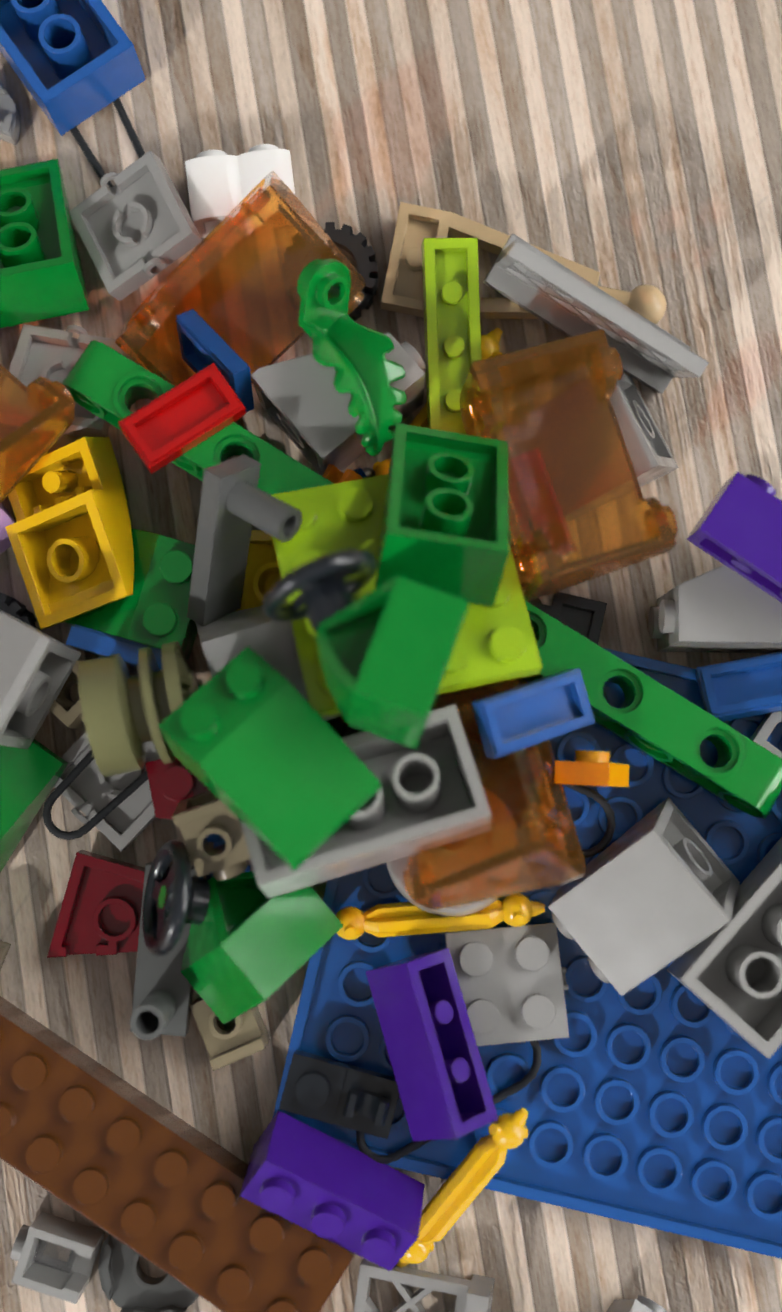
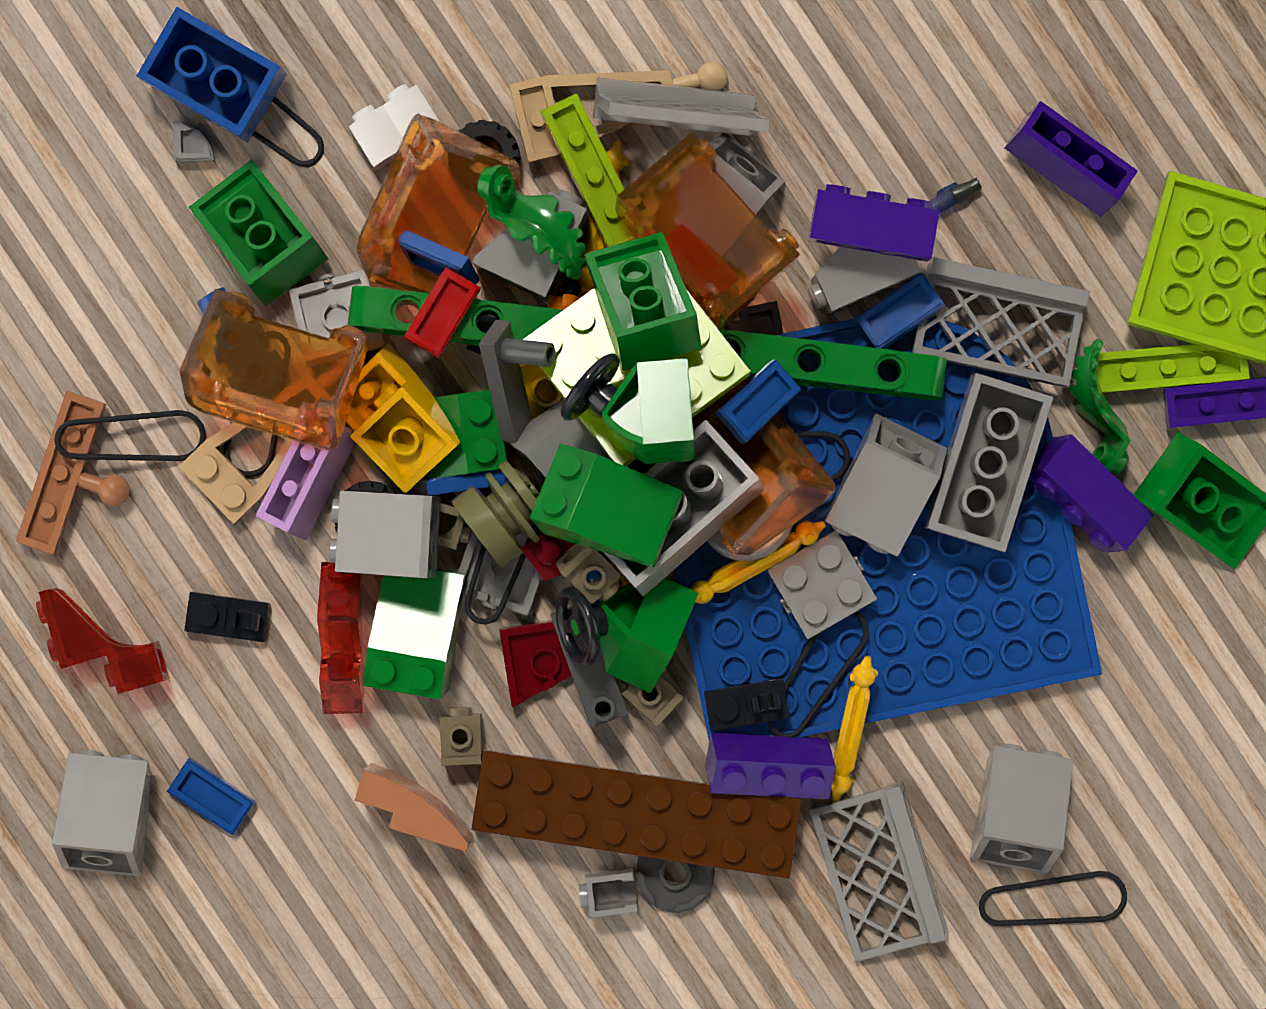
camera: 25 degrees left, 5 degrees up
(135, 225) = (334, 186): light grey plate -> none
(431, 1046) = (789, 643): dark purple brick -> none
(592, 769) = (815, 419): light orange plate -> none

